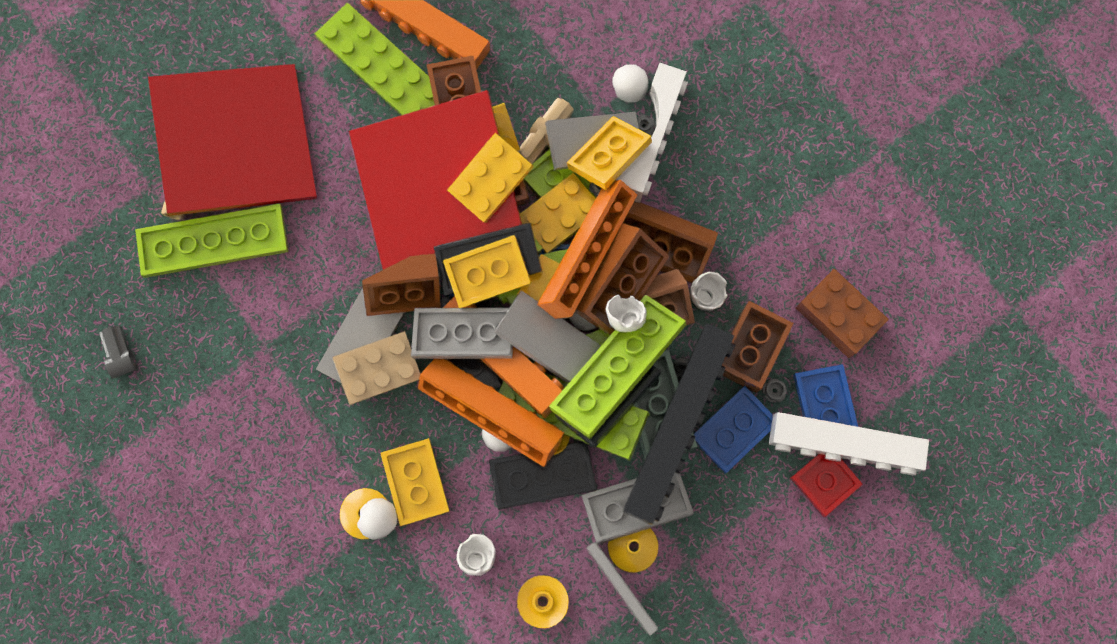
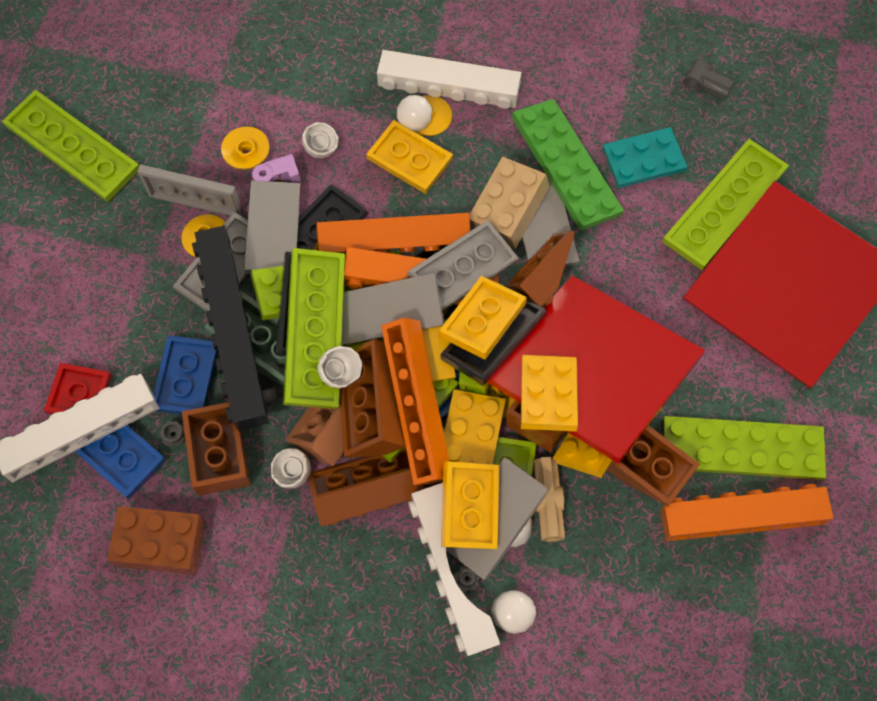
camera: 145 degrees right, 10 degrees down
(233, 330) = (644, 157): none -> teal plate
(297, 374) = (567, 164): none -> bright green plate
(321, 529) = (449, 79): none -> white brick
(543, 559) = (277, 170): none -> lavender leg
(577, 501) = (271, 223): none -> light grey tile

